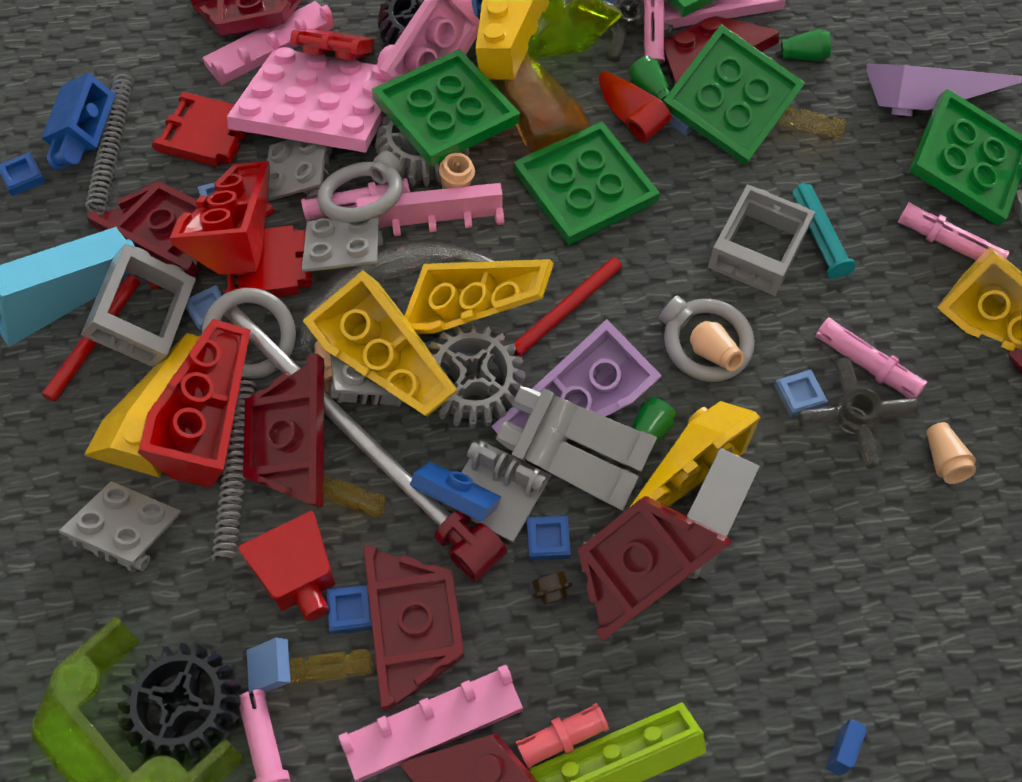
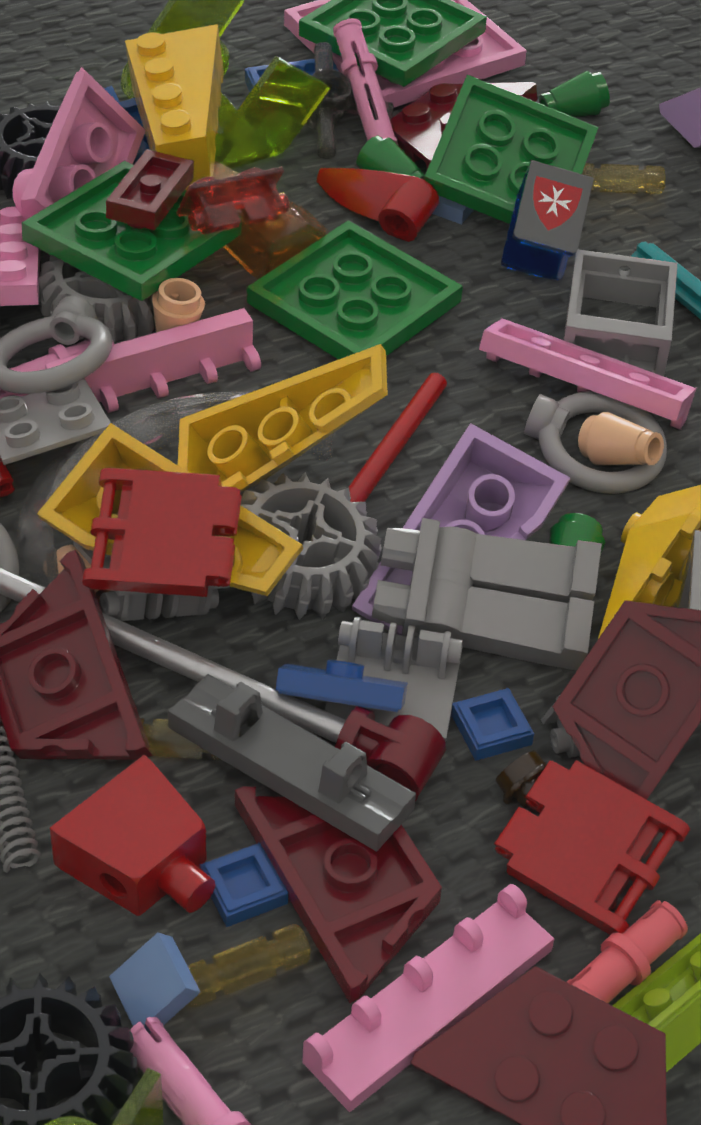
camera: 20 degrees left, 15 degrees down
(370, 361) = (164, 533): none -> red plate
(404, 538) = (293, 761): none -> dark grey hinge
(461, 82) = (149, 190): none -> dark red plate
(528, 98) = (214, 202): none -> clear red hinge
(568, 649) = (588, 843): none -> red plate
(719, 283) = (588, 370): none -> bright pink hinge
(735, 155) = (546, 220): none -> piece

